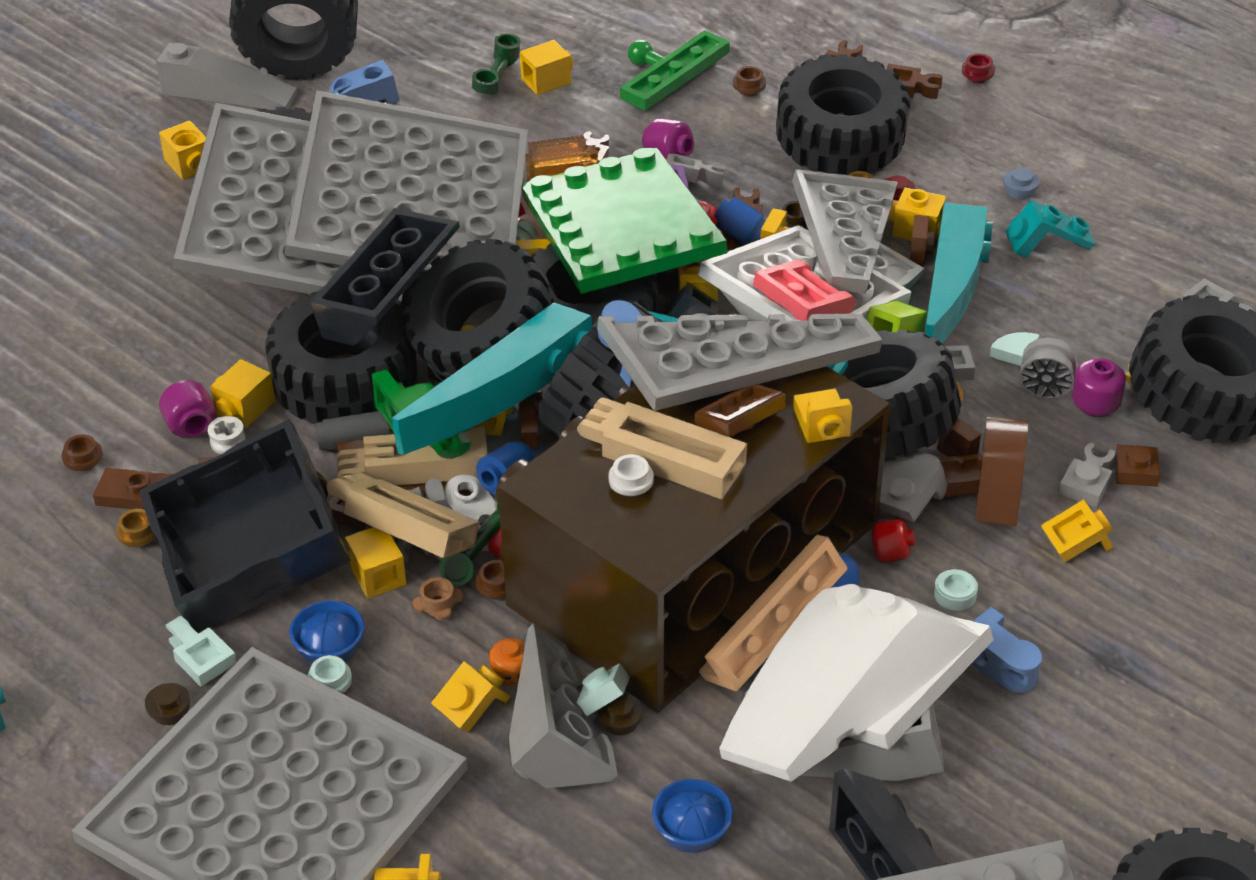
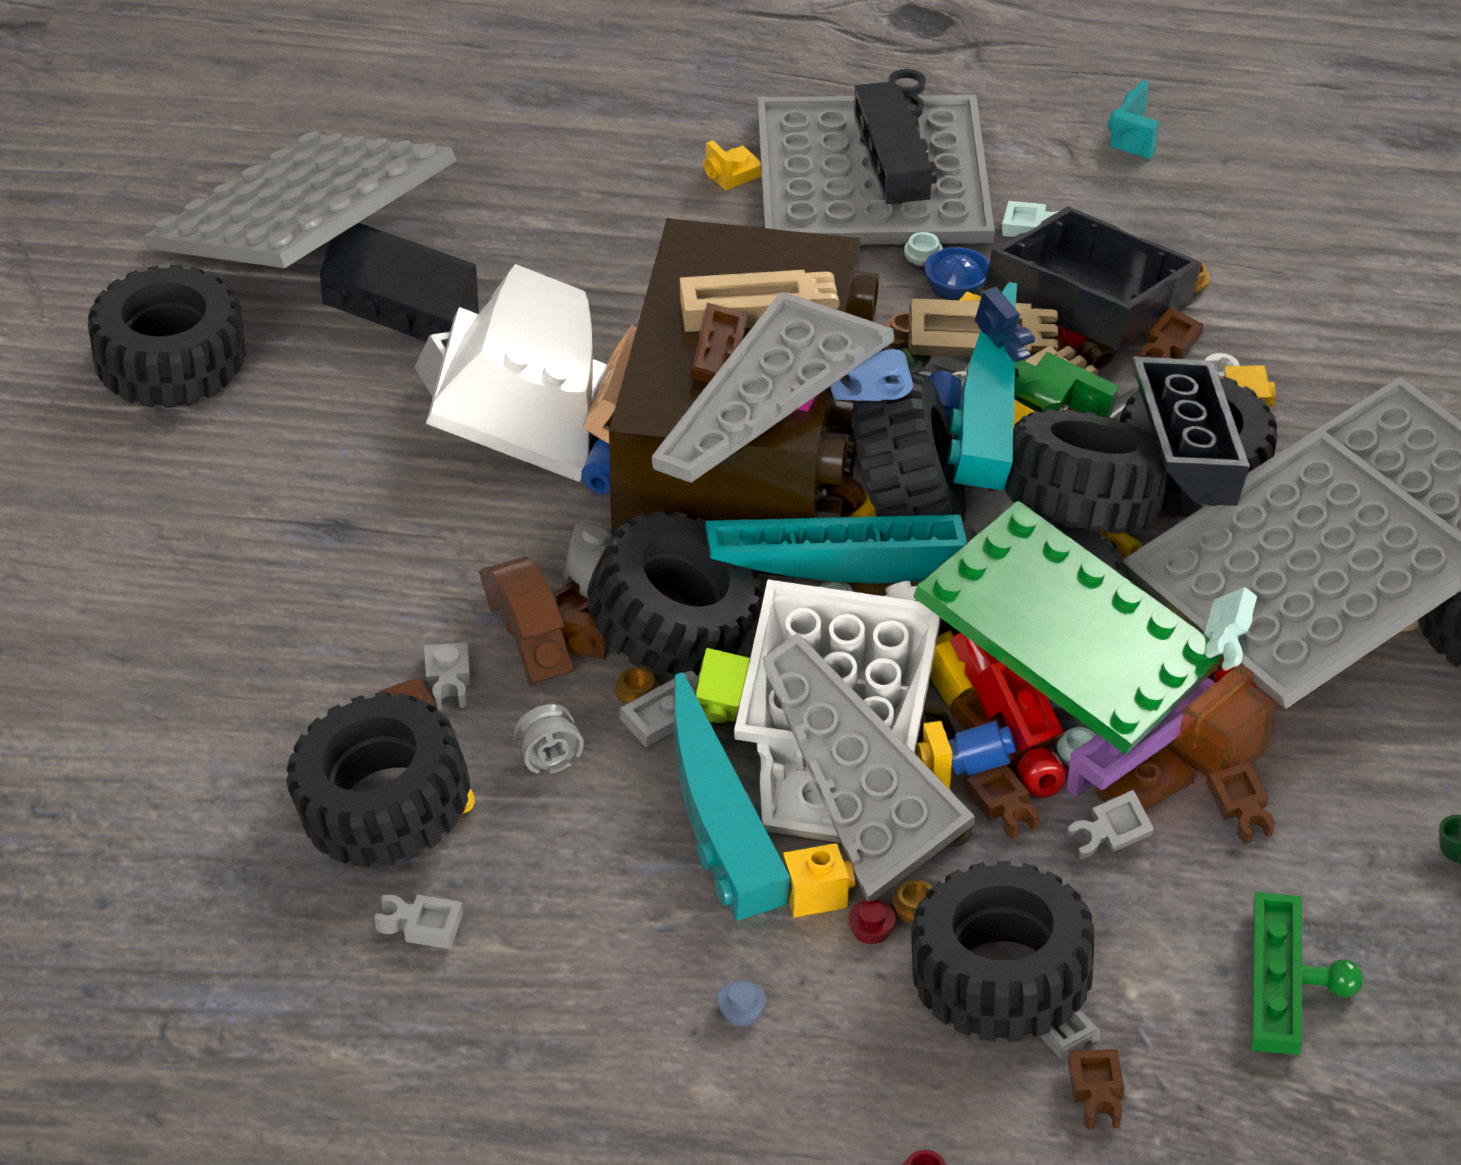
camera: 145 degrees right, 0 degrees up
(81, 452) = (1310, 305): reddish brown plate -> none
(121, 487) = (1230, 305): reddish brown plate -> none
(167, 703) = (1015, 189): dark brown plate -> none
(187, 409) = (1277, 356): magenta head -> none
(233, 787) = (893, 137): none -> black hinge
(460, 365) = (999, 322): none -> dark blue plate
(511, 172) = (1227, 620): none -> light aqua plate
(546, 67) = (1420, 891): yellow brick -> none
(631, 475) = (758, 261): white plate -> none
(669, 137) = (1171, 848): magenta head -> none
(692, 814) = (583, 272): blue hat -> none
(749, 80) = (1178, 1004): reddish brown plate -> none
(802, 291) = (814, 596): coral plate -> none
(823, 415) = (648, 378): yellow bracket -> none
(892, 540) = (581, 516): red piece -> none
(915, 82) = (992, 1093): reddish brown plate -> none
(921, 240) = (787, 835): reddish brown plate -> none
(955, 590) = (500, 520): light aqua tile -> none
(1008, 656) = (426, 472): medium blue leg -> none
(1011, 347) = (602, 777): light aqua tile -> none
(1037, 220) = (655, 932): teal bracket -> none
(1077, 530) = (417, 600): yellow bracket -> none
(1098, 387) = (486, 741): magenta head -> none

